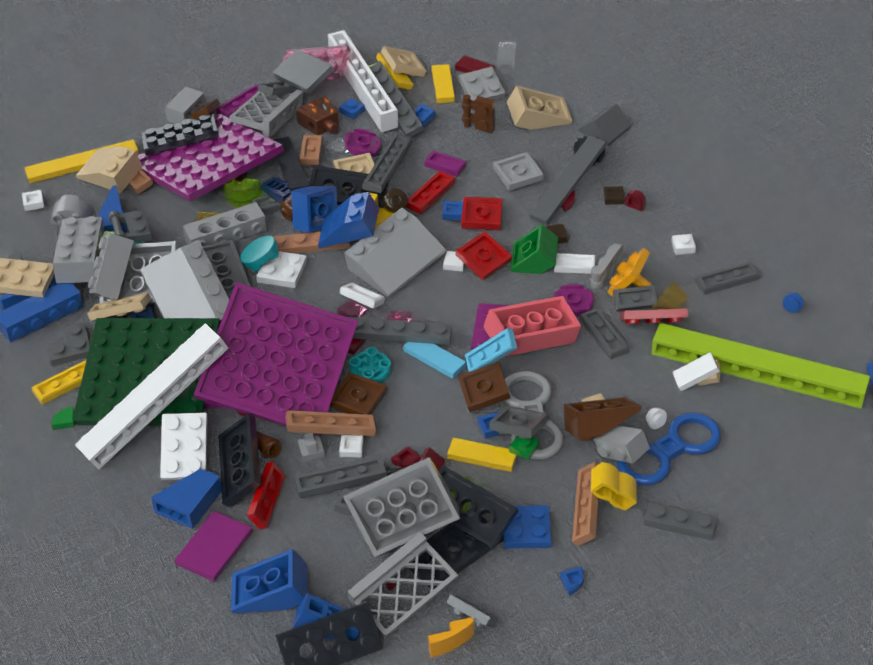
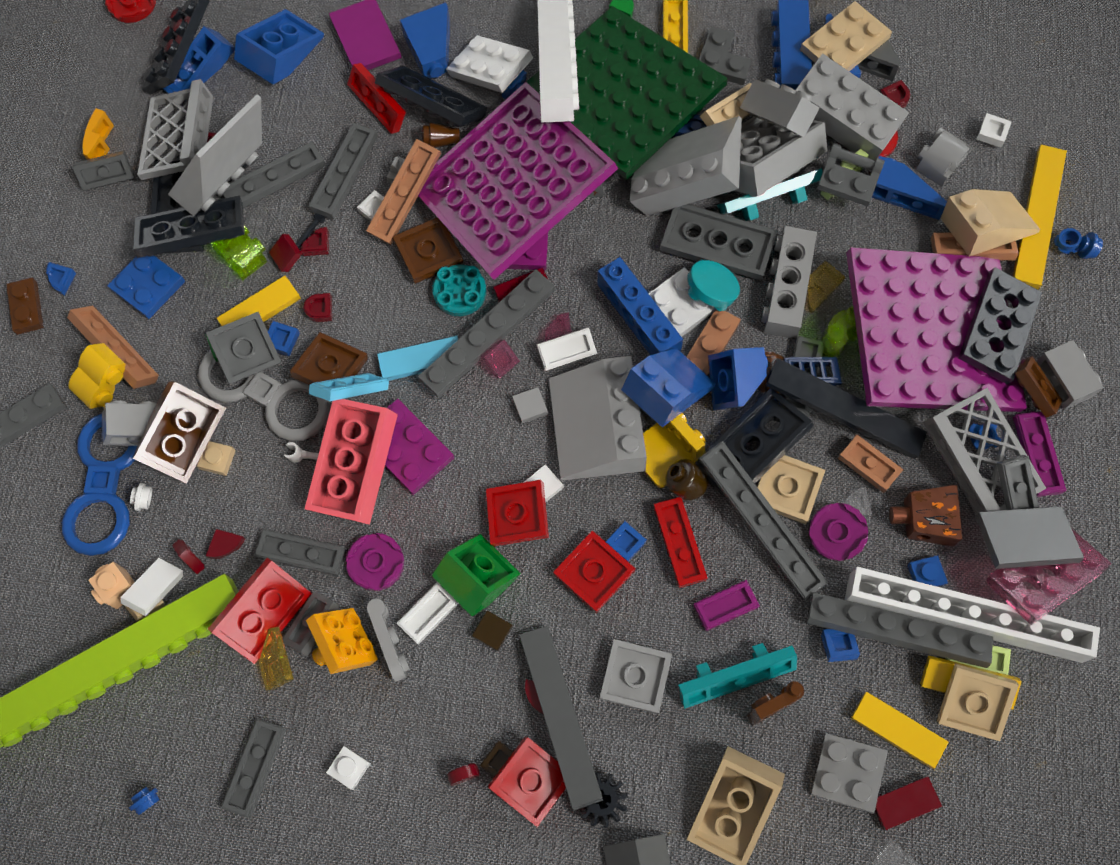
camera: 130 degrees right, 25 degrees up
(36, 253) = (898, 93): none -> dark red tile
(89, 132) = (1090, 246): none -> blue plate
(92, 141) = (1068, 235): none -> blue plate
(308, 271) = (638, 308): none -> blue brick
(413, 293) = (530, 405): none -> light grey tile
(450, 426) = (319, 307): none -> dark red tile
(490, 142) = (745, 674): none -> teal hinge
(550, 369) = (299, 453): none -> white hand
(610, 175) = (529, 781): none -> plate
(611, 582) = (24, 306): none -> reddish brown plate
(638, 366) = (223, 544): none -> dark red tile
(662, 372) = (188, 556): none -> dark red tile
(715, 389) = (110, 584): none -> light nougat brick

